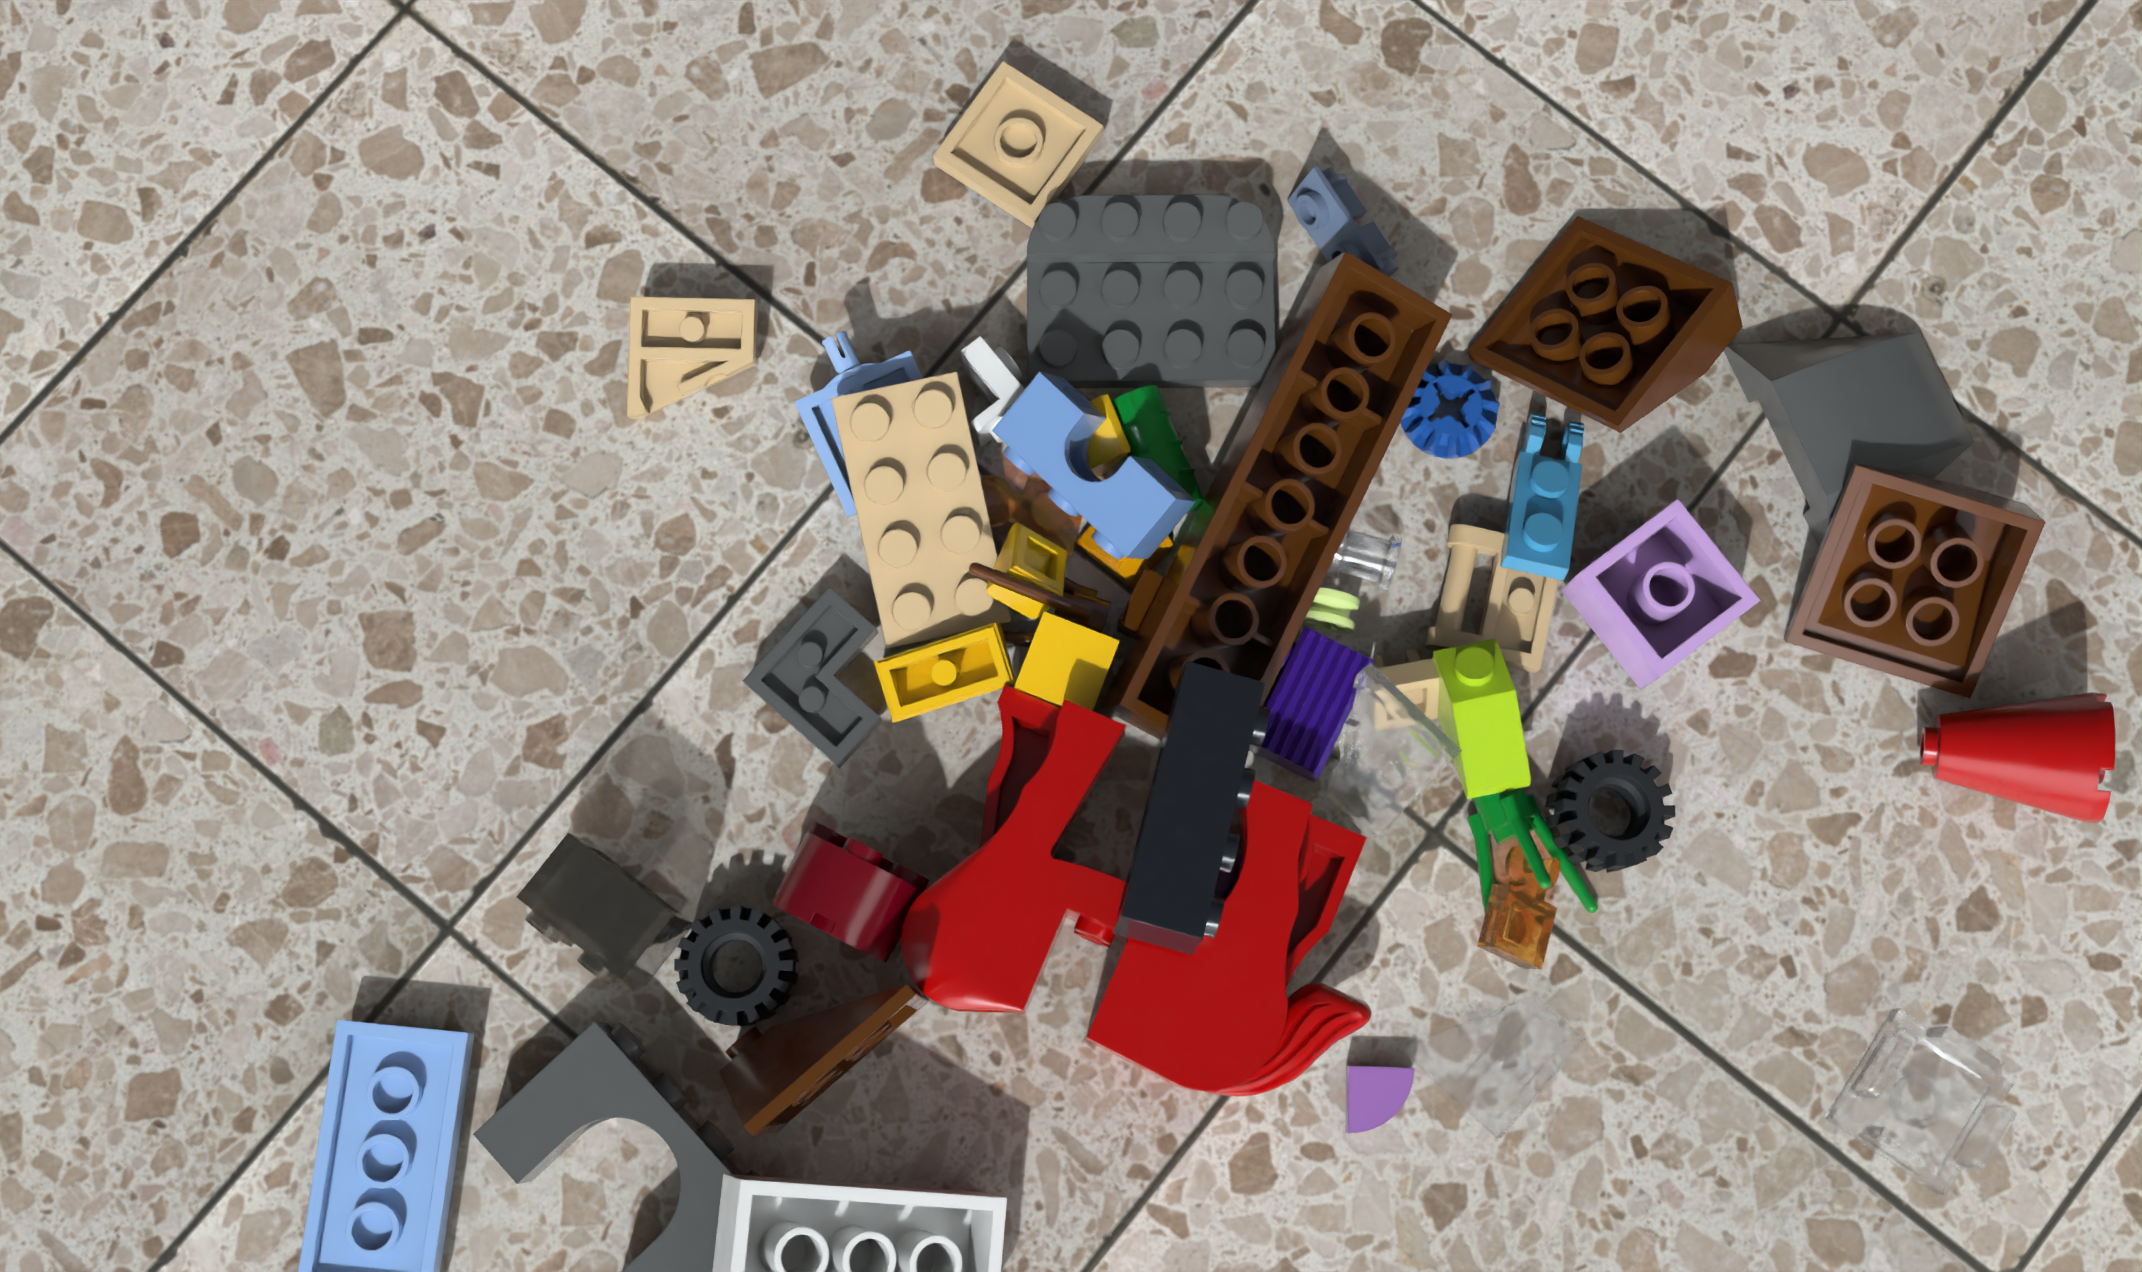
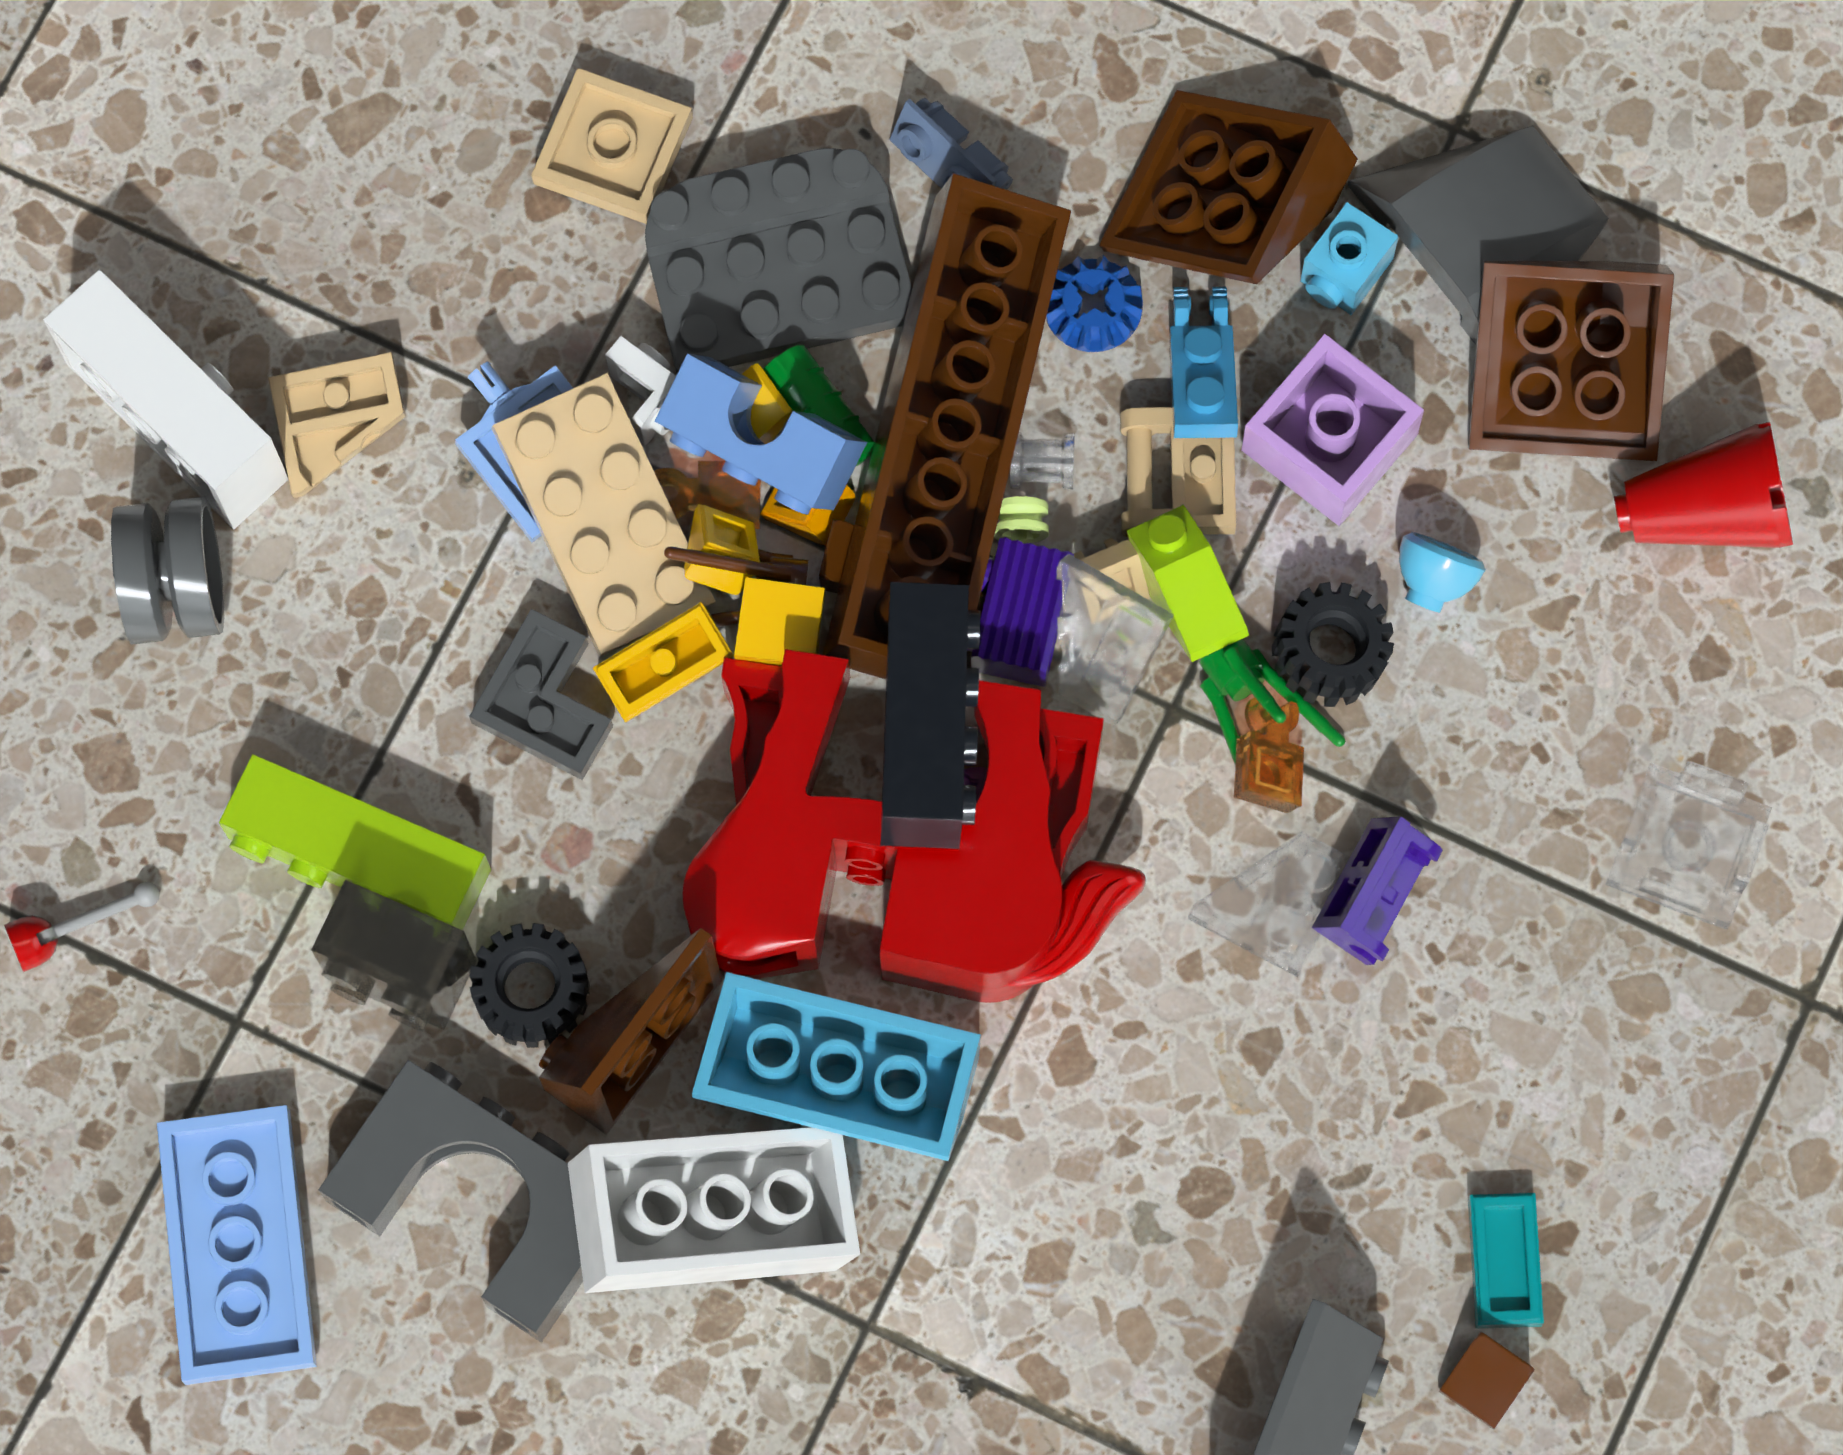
camera: 10 degrees left, 5 degrees down
(269, 801) = (37, 940): none -> hinge
(481, 466) = (167, 570): none -> dark grey wheel
(523, 294) = (167, 398): none -> white brick
(599, 786) = (343, 839): none -> lime brick
(849, 891) = (621, 885): dark red brick -> none
(1017, 1139) = (838, 1066): none -> medium azure slope
(1375, 1095) = (1170, 961): medium lavender tile -> none
(1595, 1070) = (1375, 887): none -> dark purple hinge
(1710, 424) = (1348, 260): none -> medium azure brick
(1730, 760) = (1436, 571): none -> medium azure brick

